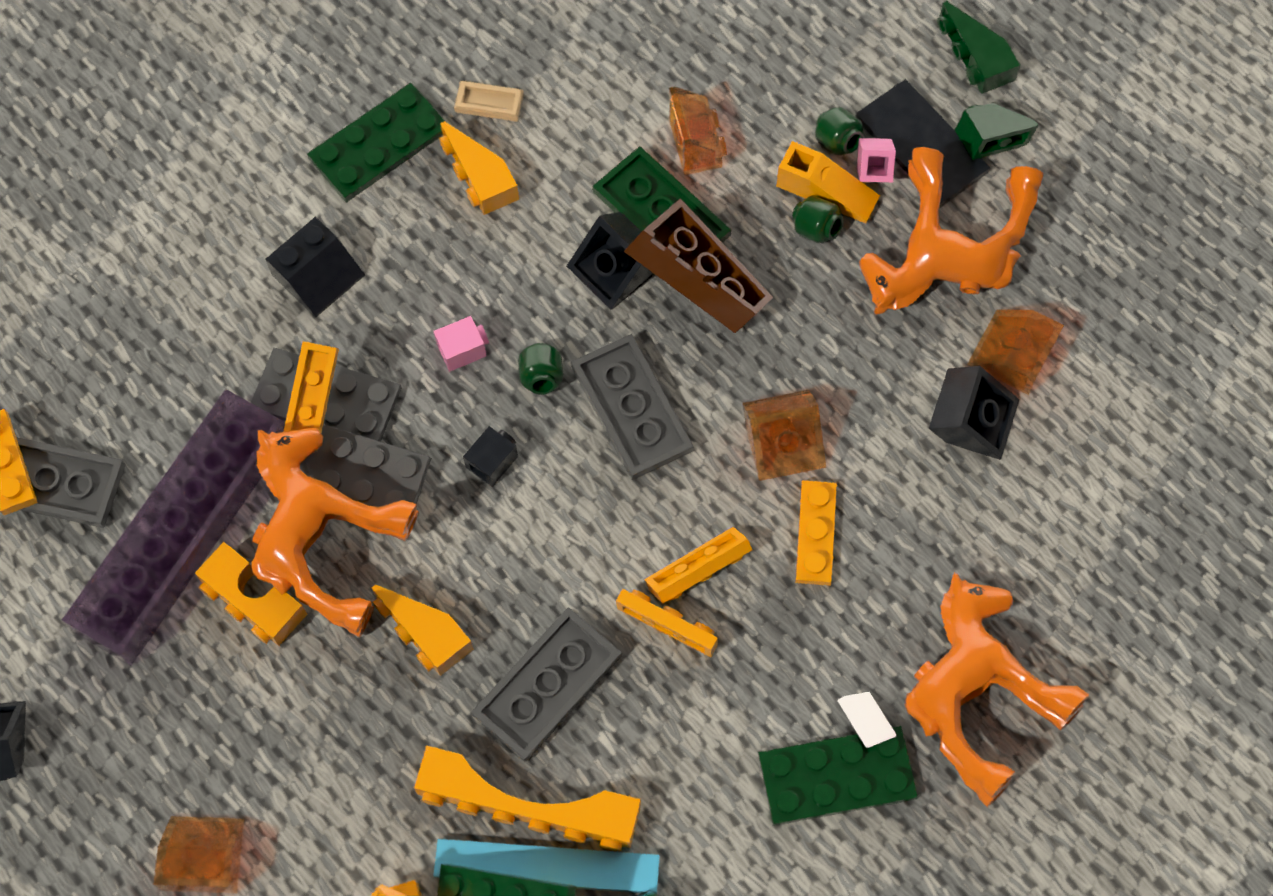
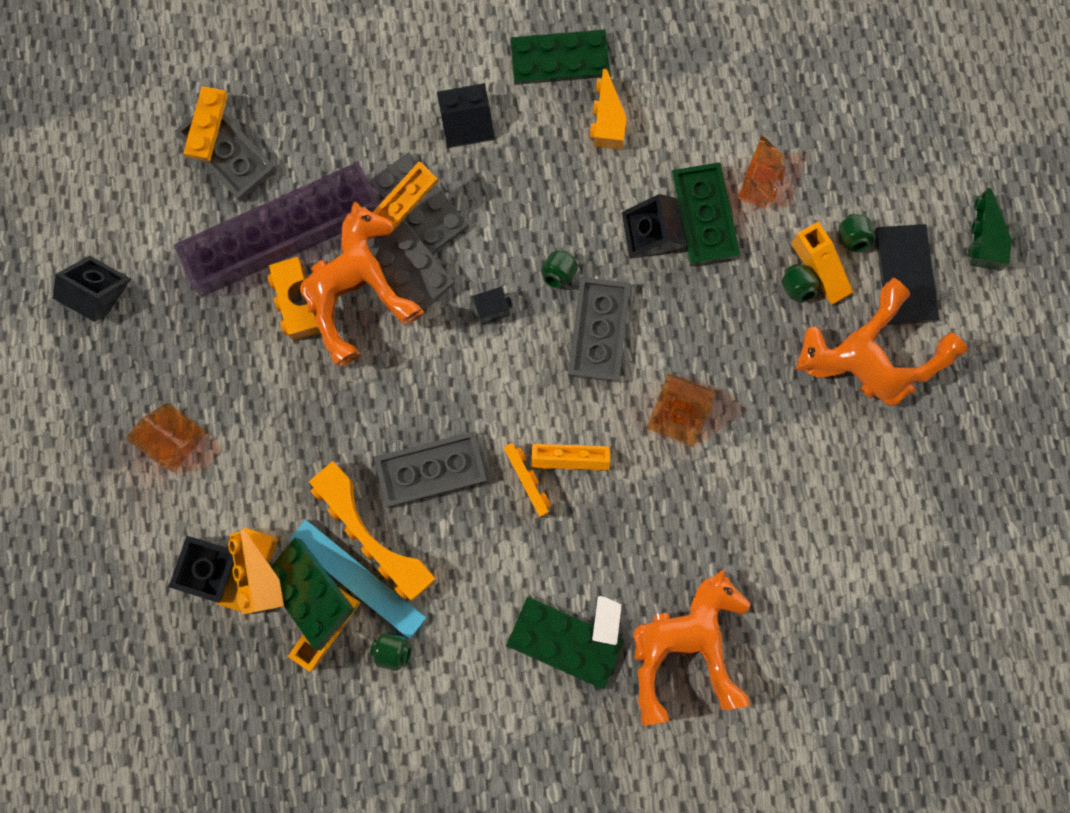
camera: 35 degrees right, 10 degrees up
(431, 630) = (383, 394): light orange slope -> none
(461, 343) = (522, 221): bright pink brick -> none
(489, 101) = (646, 72): tan tile -> none
(699, 266) = (699, 267): reddish brown wedge -> none
(816, 533) = (658, 484): light orange plate -> none
(876, 160) = (866, 267): bright pink brick -> none
(974, 411) = (812, 474): black slope -> none
(993, 130) = (959, 296): dark green slope -> none
(1016, 347) = (869, 449): clear orange slope -> none

